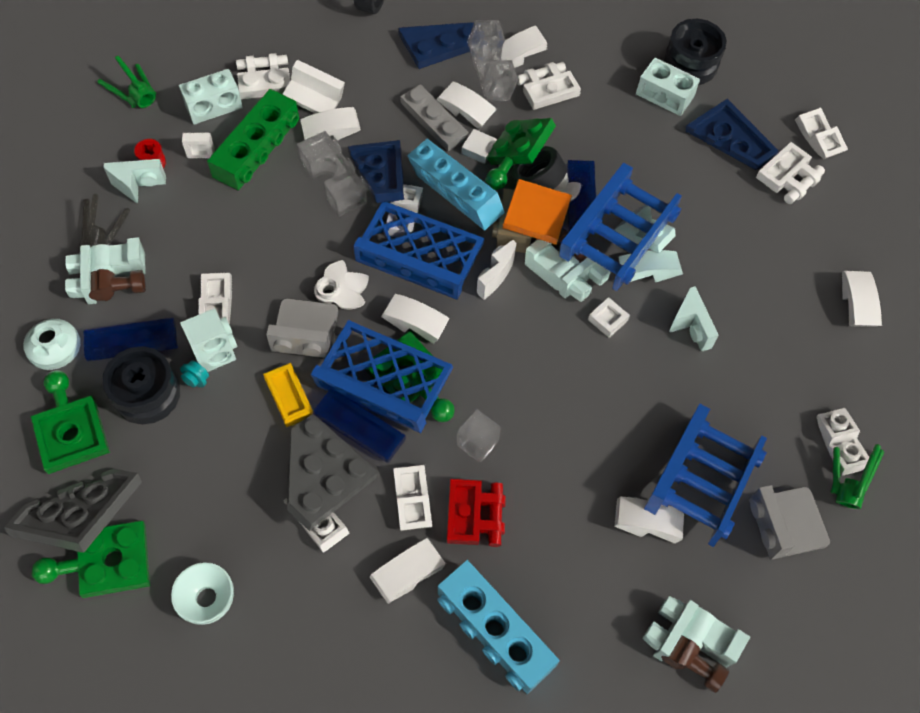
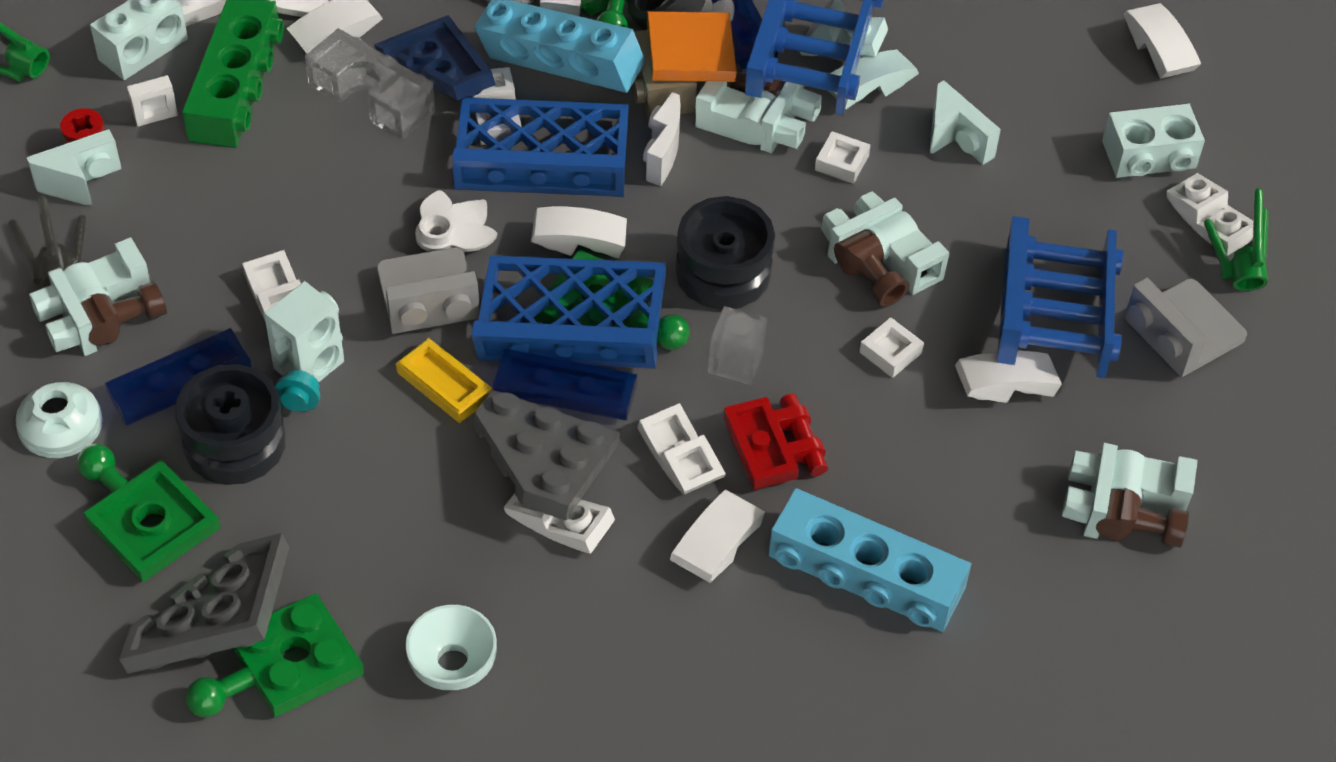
camera: 20 degrees left, 10 degrees down
(498, 366) = (724, 252): none -> black wheel
(582, 468) = (891, 347): none -> white tile
(606, 385) = (888, 236): none -> light aqua hips
(823, 368) = (1153, 140): none -> light aqua brick

